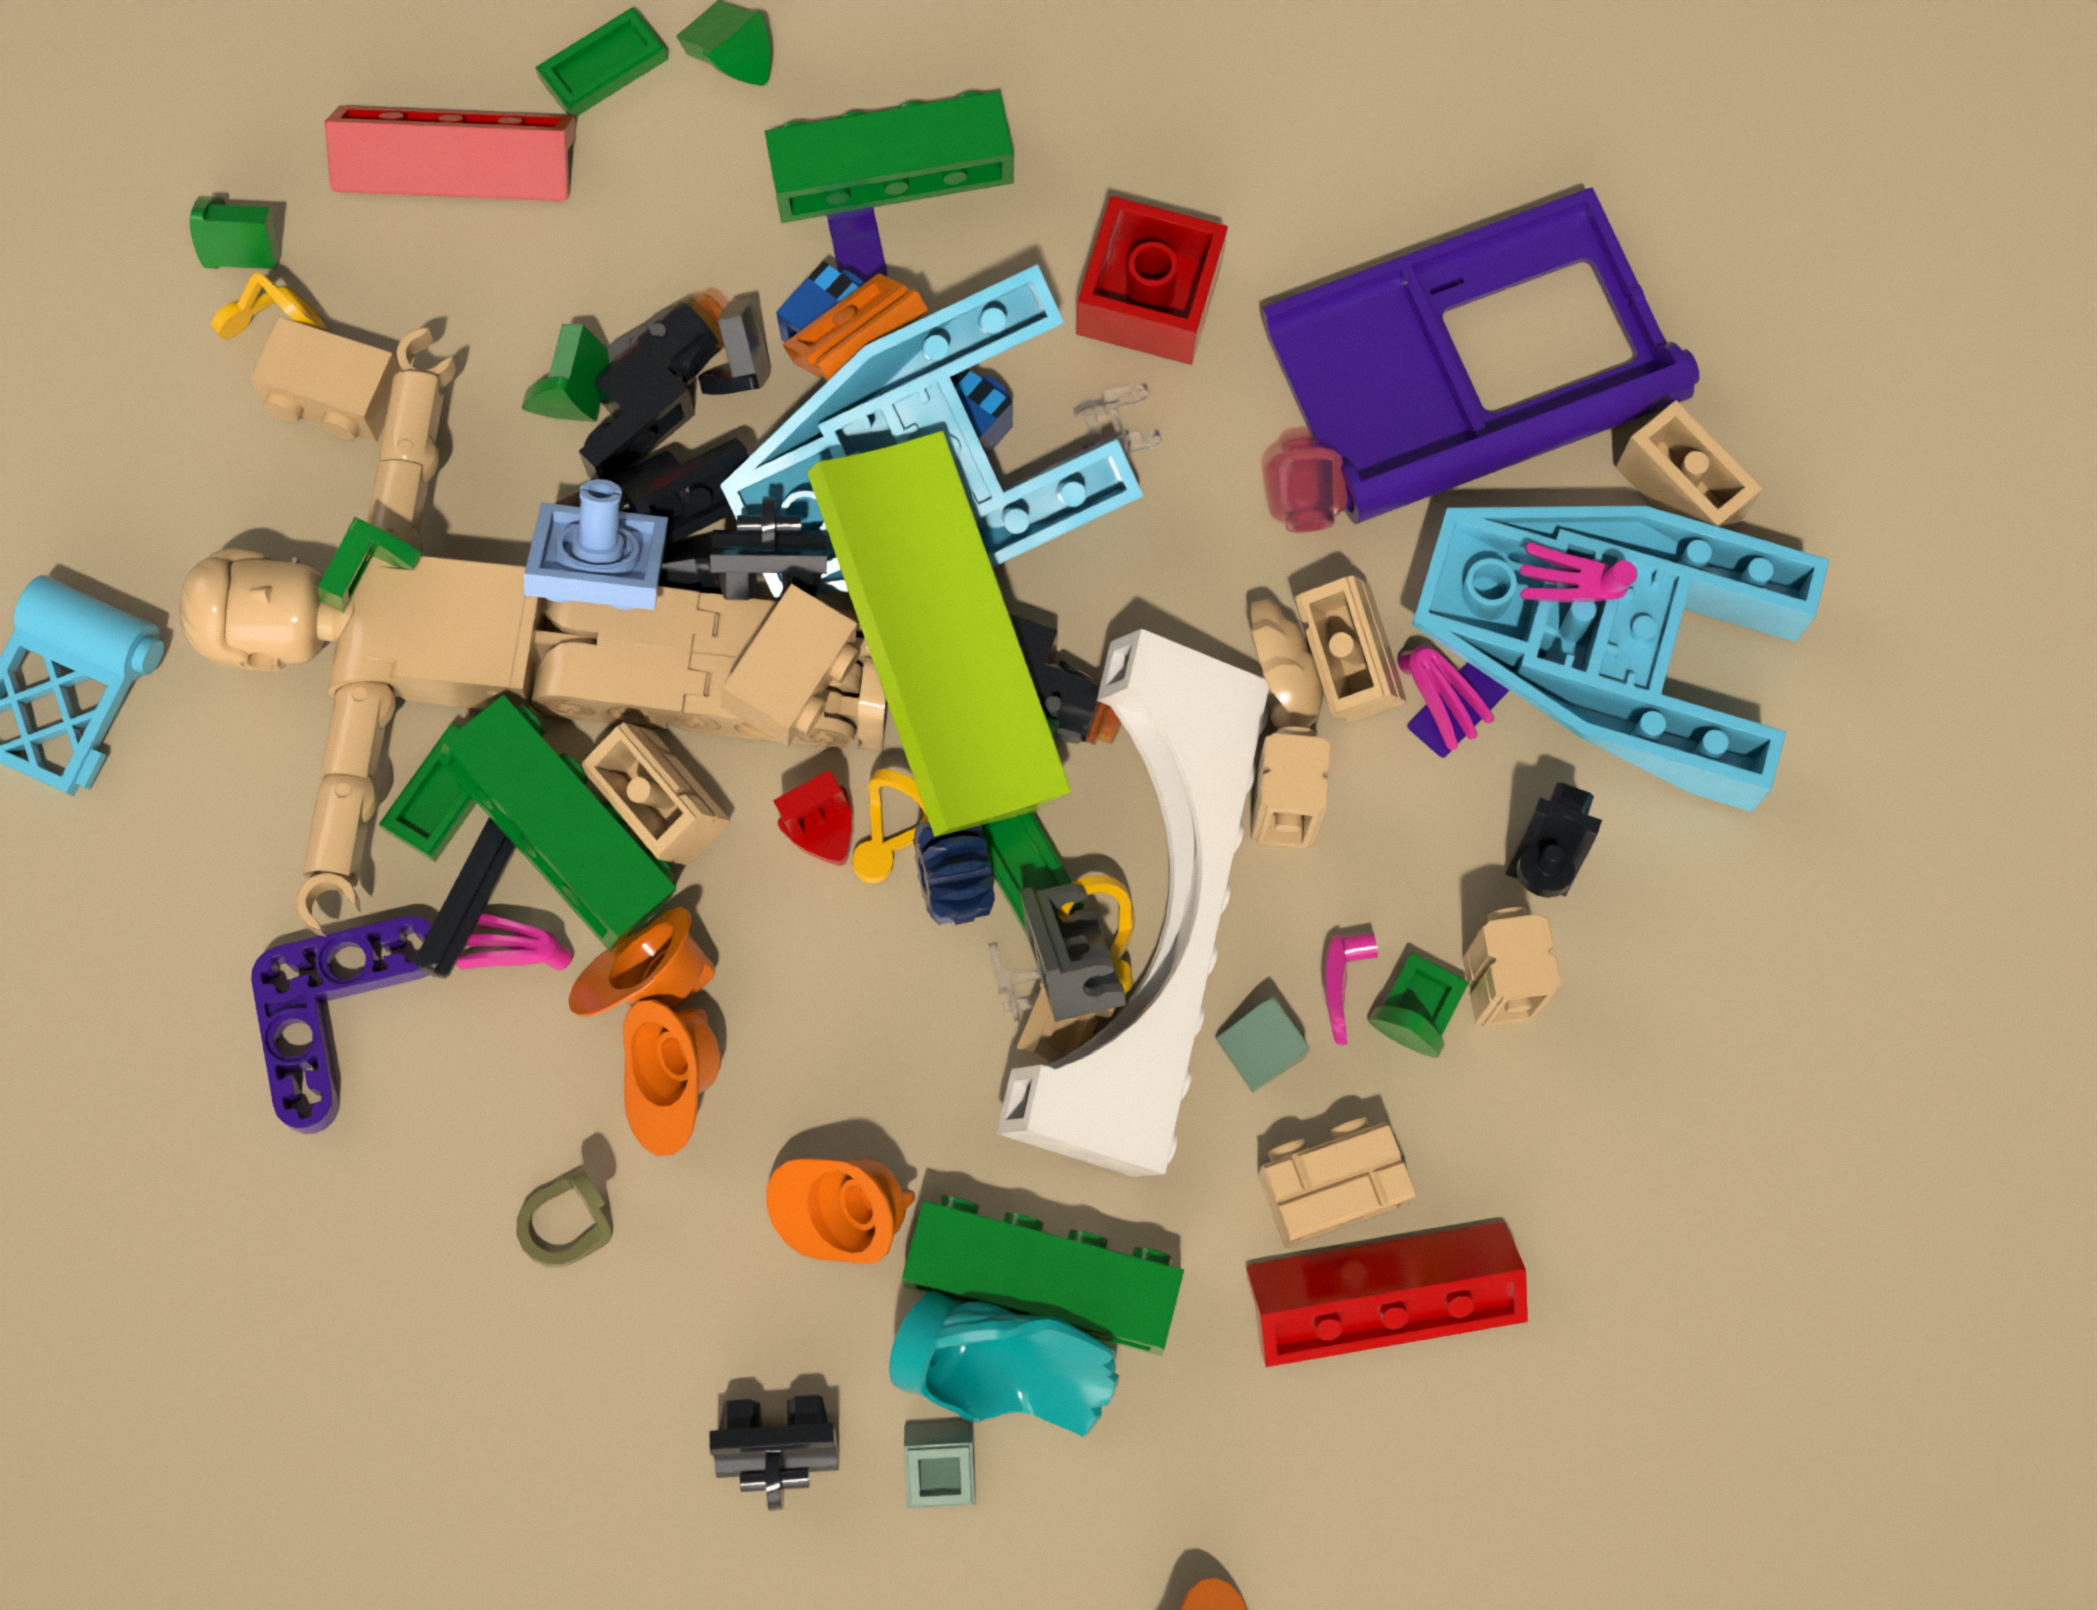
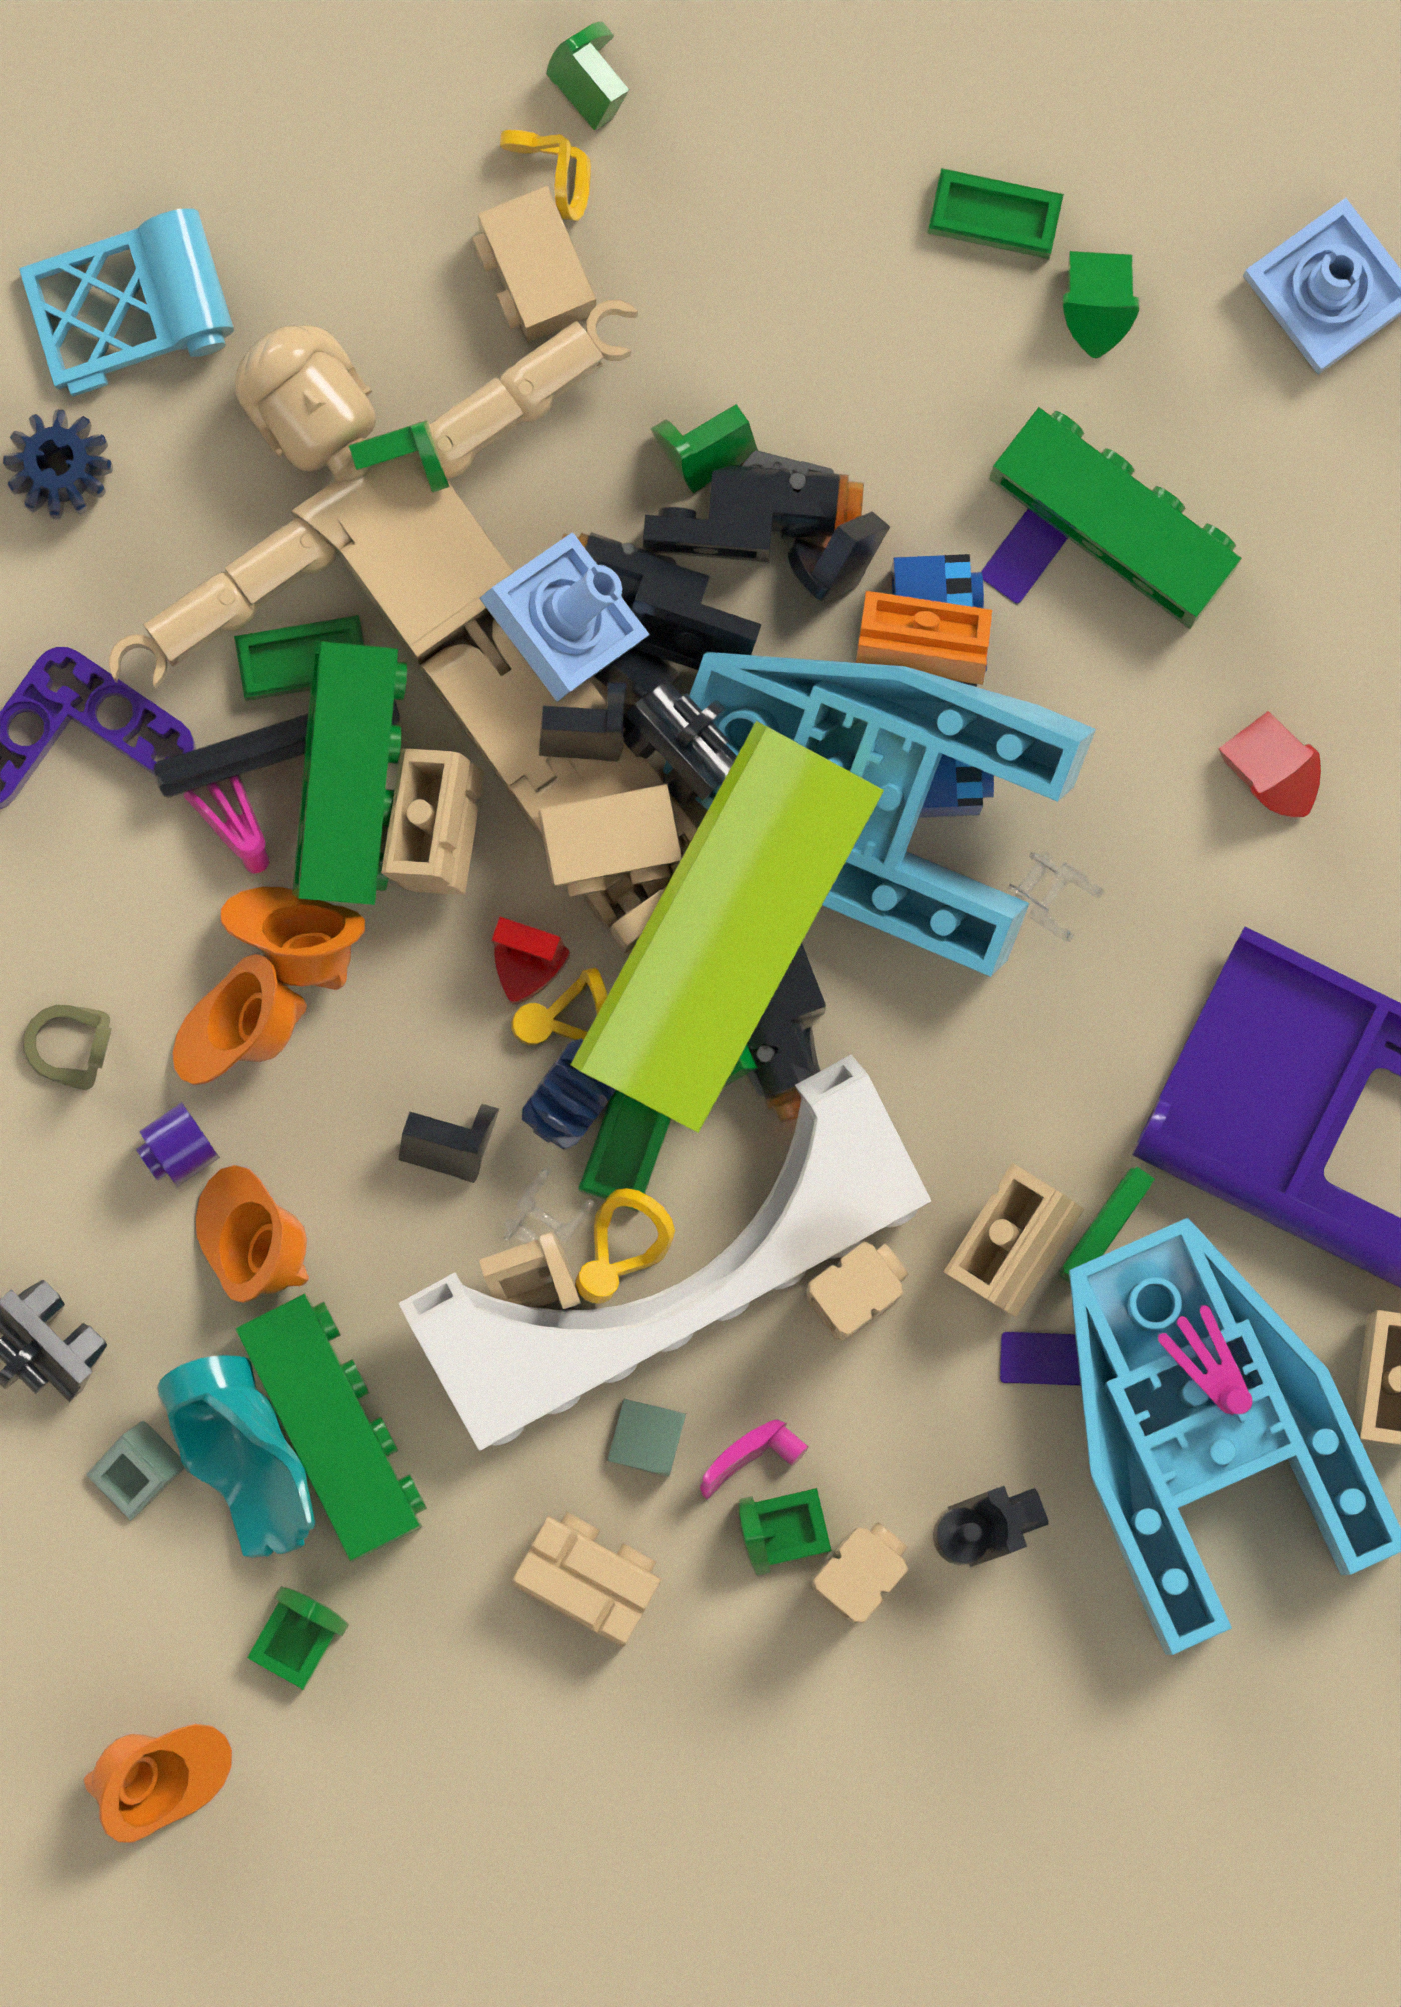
camera: 45 degrees right, 10 degrees up
(128, 859) = (70, 444): none -> dark blue gear
(449, 153) = (810, 170): panel -> none
(693, 613) = (585, 731): none -> black tile
(718, 1202) = (176, 1146): none -> dark purple plate
(906, 998) = (446, 1145): none -> black tile
(1070, 953) = (579, 1239): dark grey hinge -> none
(1151, 280) = (1187, 819): red brick -> none
(1171, 187) = (1275, 766): none -> tile
(1182, 1450) = (296, 1637): none -> green tile
(1286, 666) = (955, 1200): tan arm -> none
(1305, 486) = (1125, 1087): clear pink head -> none
(1388, 1293) = (540, 1686): red panel -> none
(1394, 581) = (1109, 1220): none -> green tile
(1433, 678) = (1053, 1320): dark pink piece -> none

